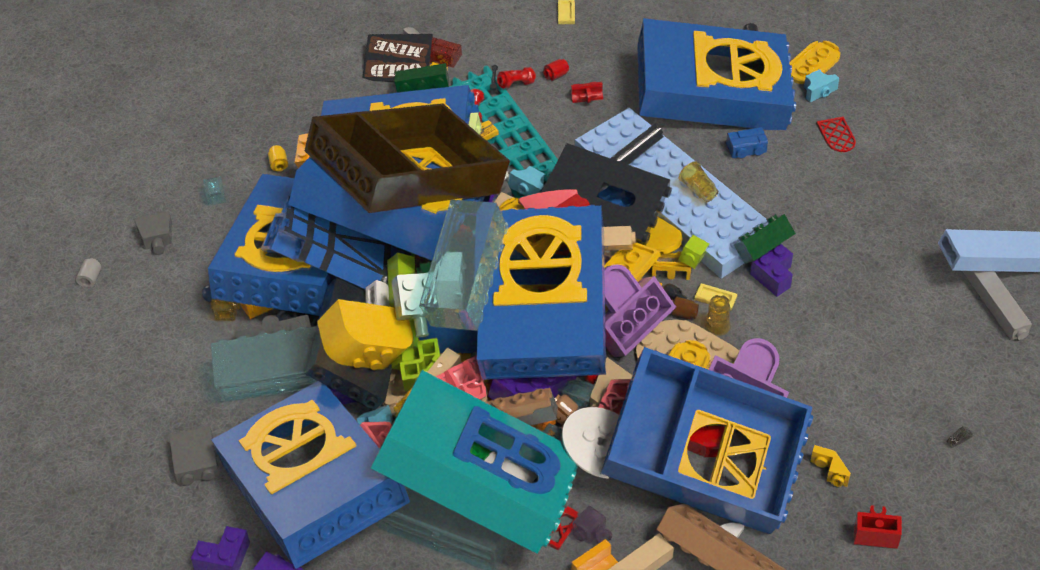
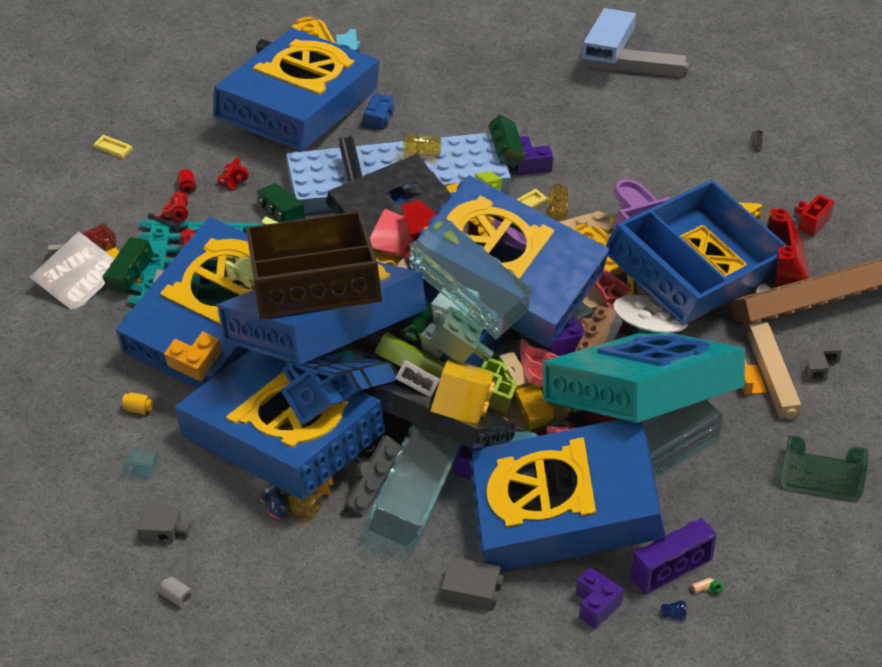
camera: 65 degrees left, 5 degrees down
(566, 132) = (280, 203): none -> dark green brick
(795, 531) = (791, 258): none -> red windscreen
(828, 141) = (412, 71): red window -> none

